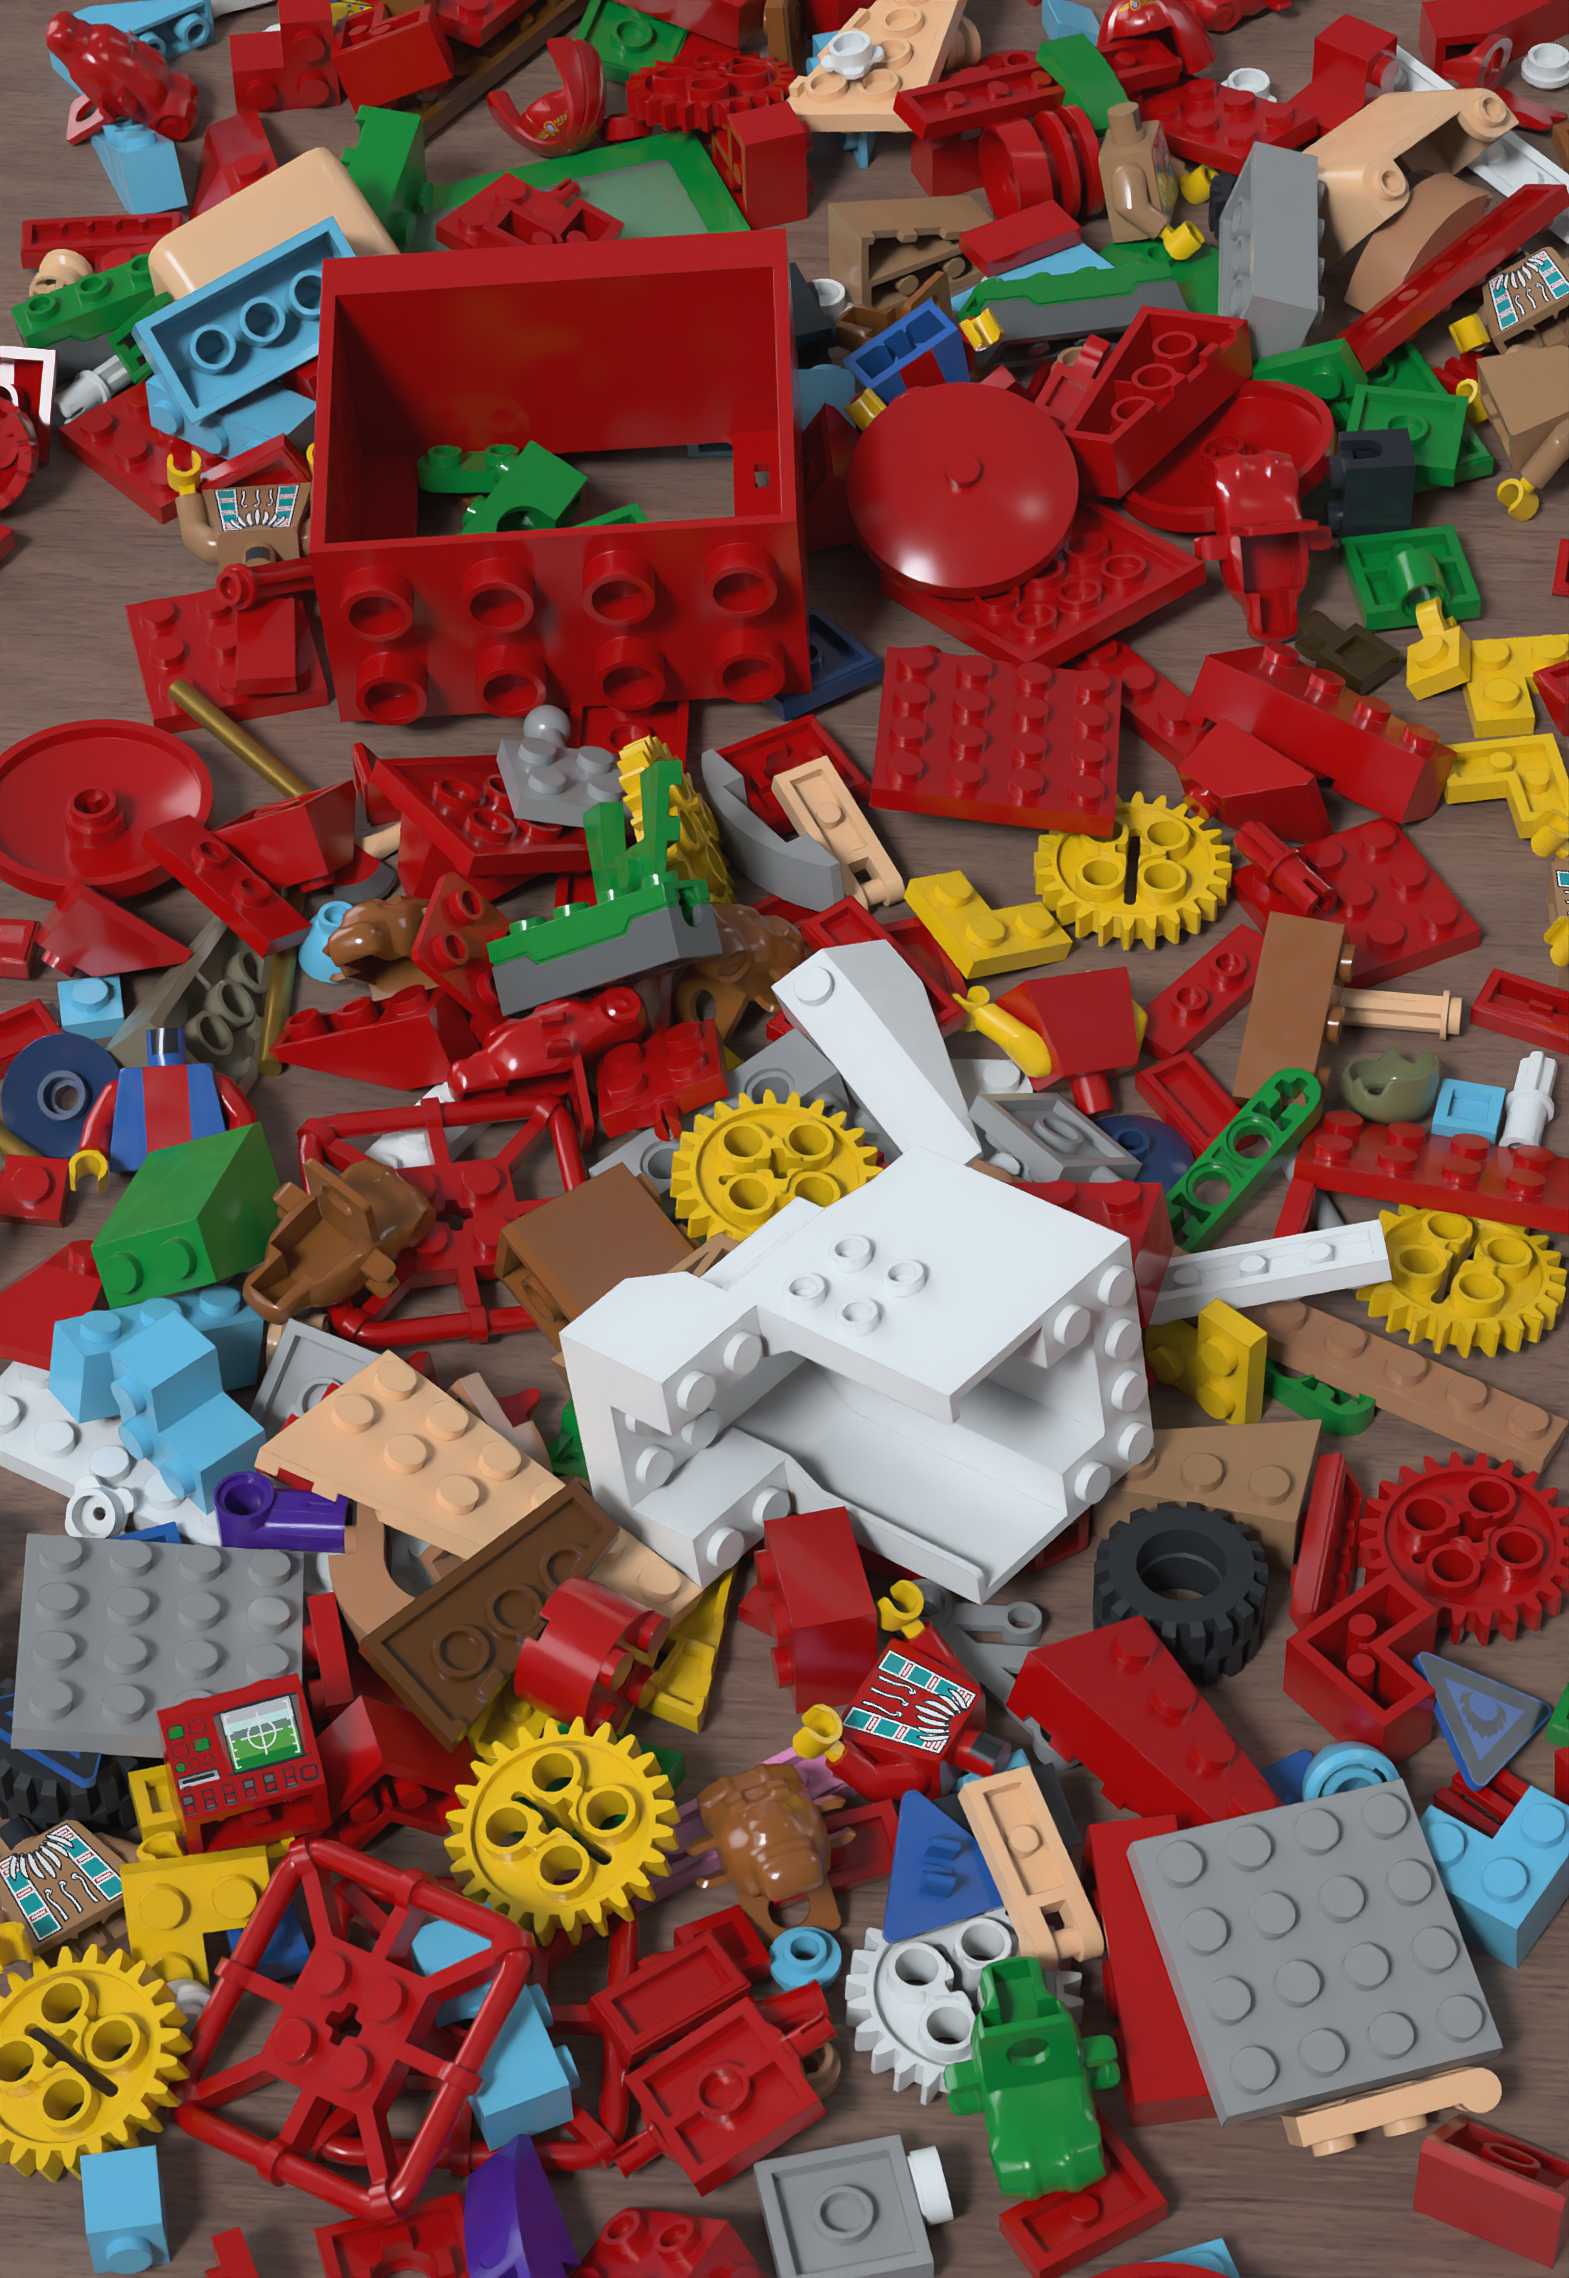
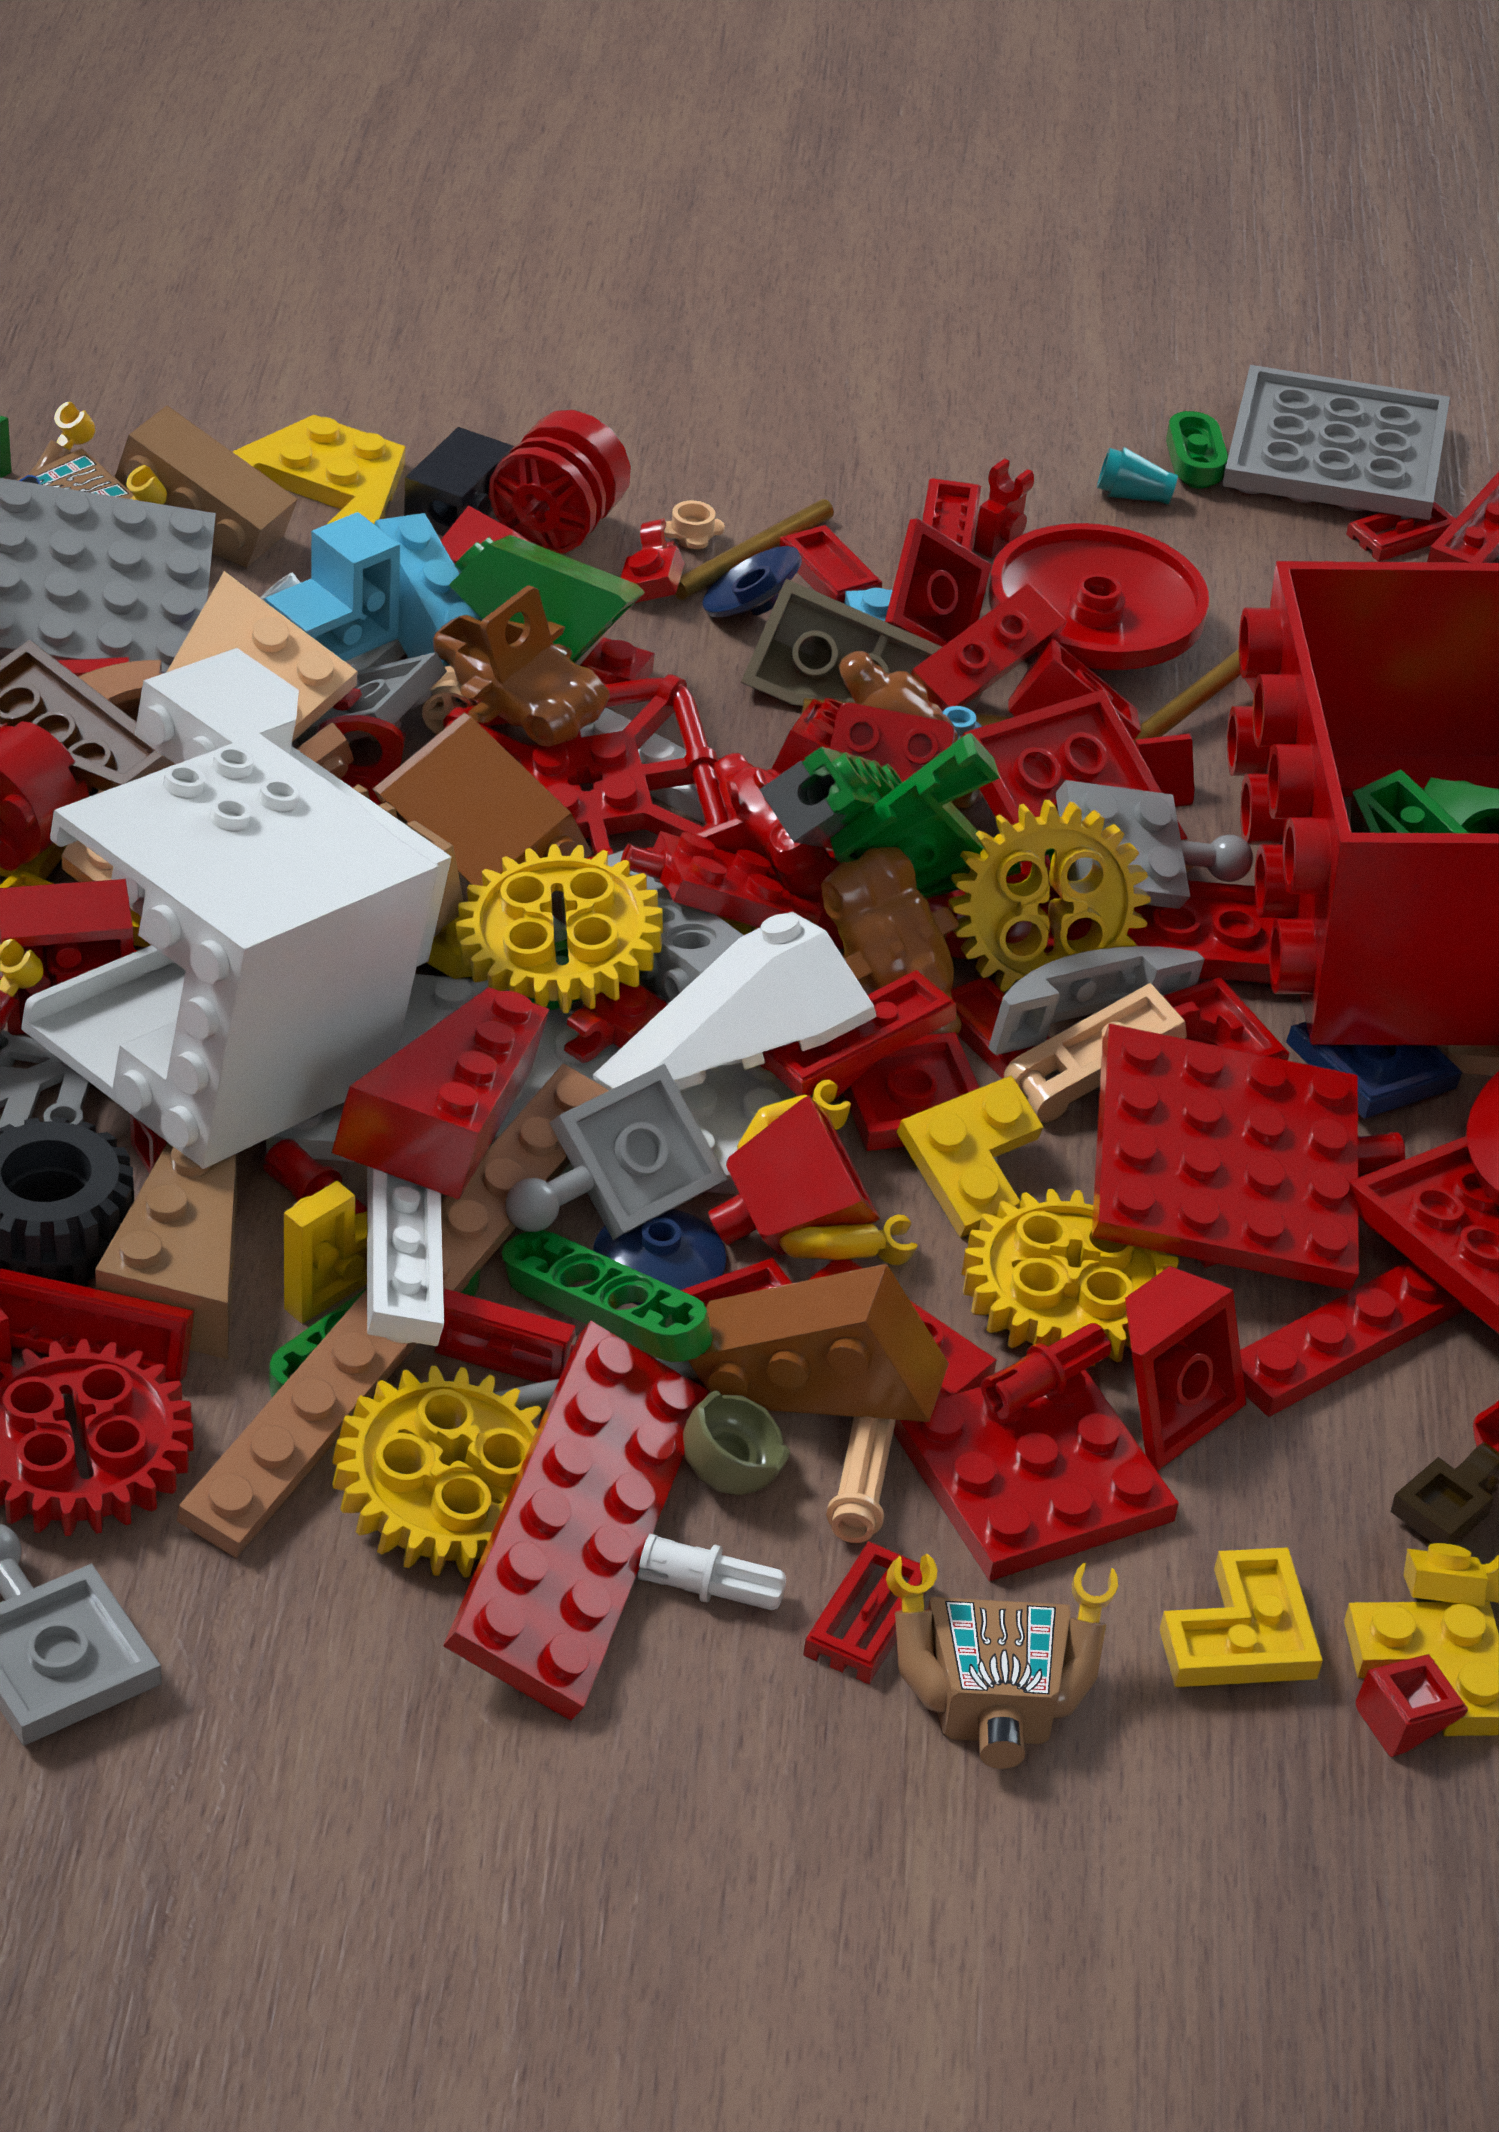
camera: 85 degrees right, 5 degrees down
(156, 1110) = (700, 620): torso -> none
(1325, 728) = (1296, 1418): red wedge -> none
(1468, 1109) = (699, 1512): medium azure plate -> none

